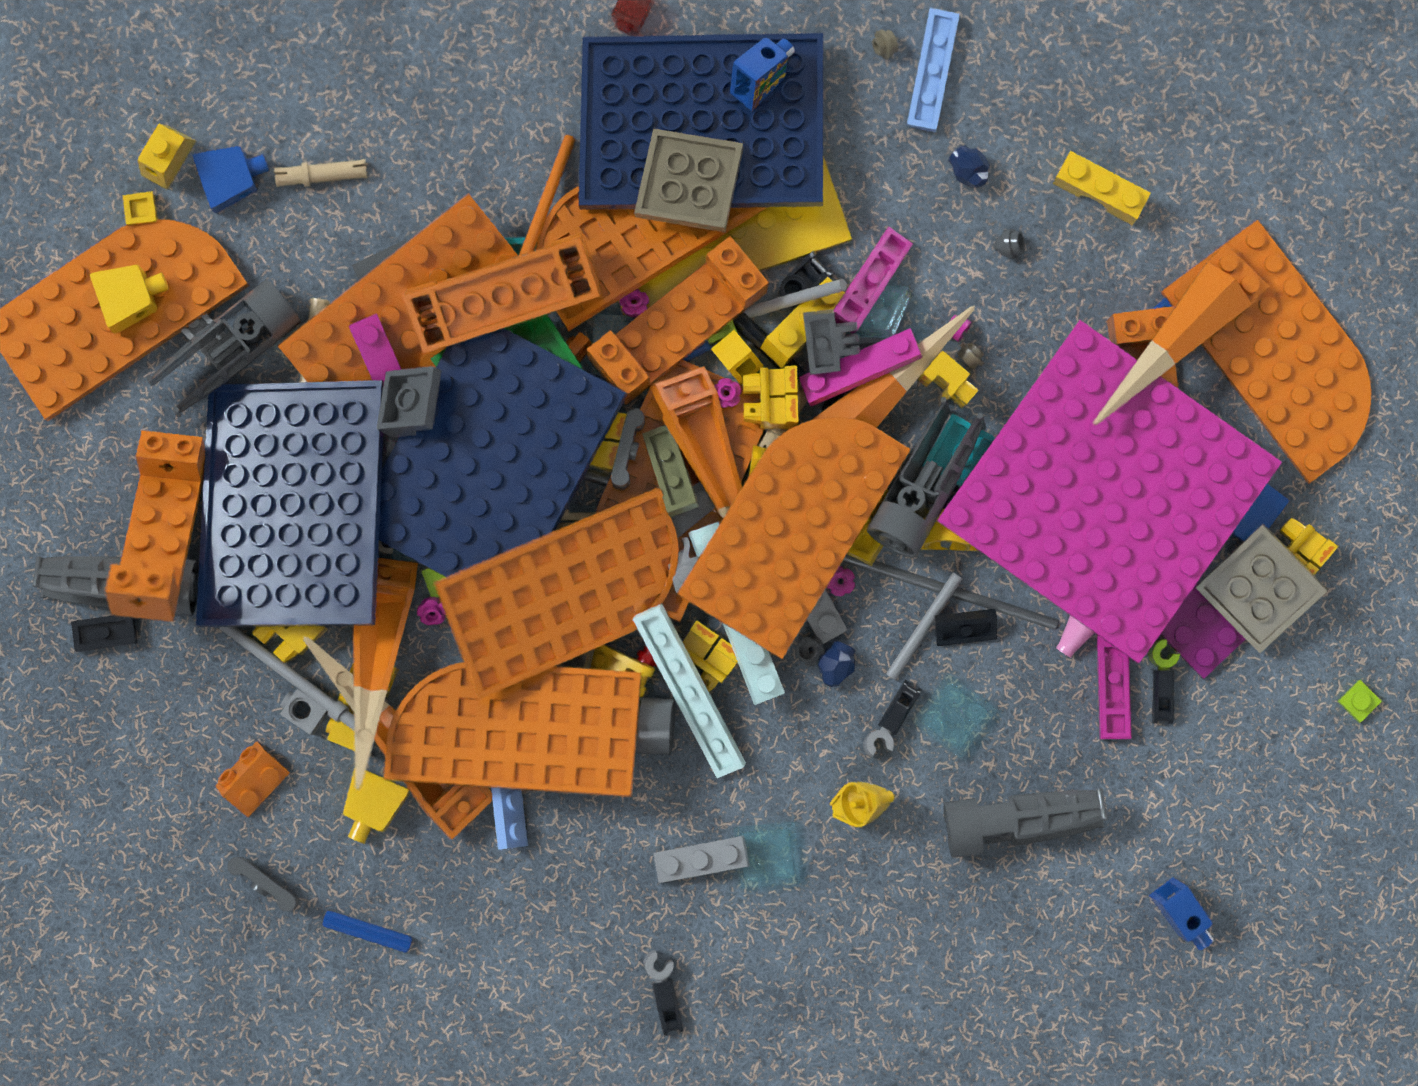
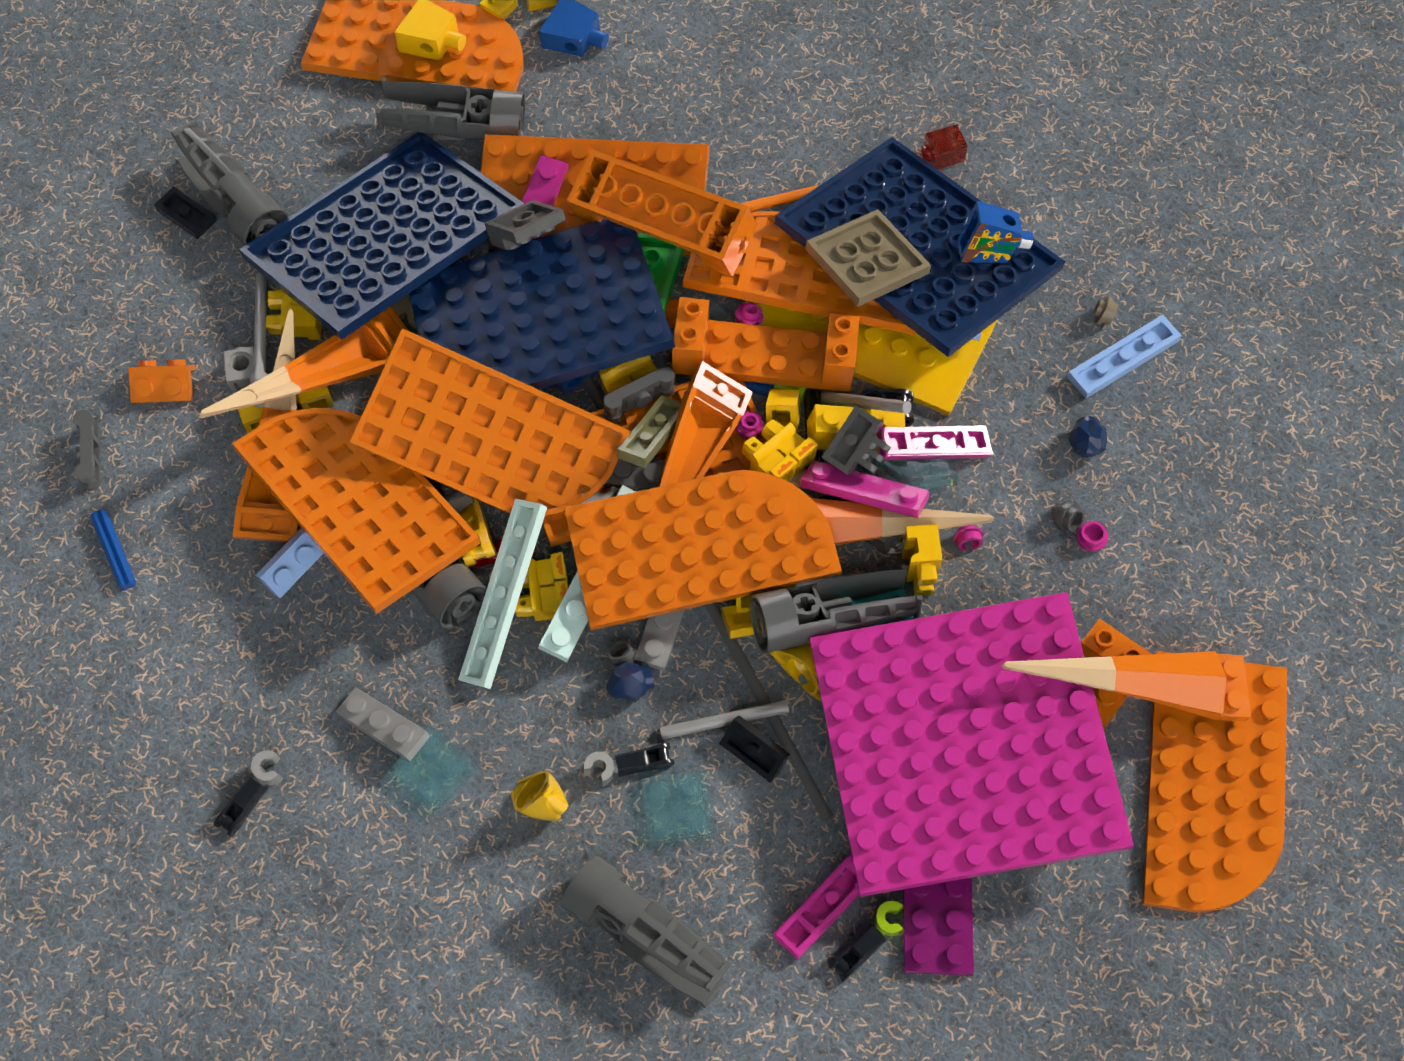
camera: 50 degrees right, 20 degrees down
(158, 527) = (283, 174): orange plate -> none
(317, 173) = (624, 70): tan pin -> none
(373, 804) = (213, 467): yellow torso -> none
(848, 584) = (699, 637): dark pink plate -> none
(971, 355) = (959, 563): dark tan plate -> none
(1040, 242) = (1092, 536): none -> dark pink plate
(1073, 637) = (830, 837): bright pink cone -> none
(1093, 181) = (1187, 551): yellow arch -> none
(1261, 588) = (1022, 939): dark tan plate -> none
(1262, 511) = (1075, 889): blue tile -> none
(1308, 544) = (1081, 951): yellow hips -> none

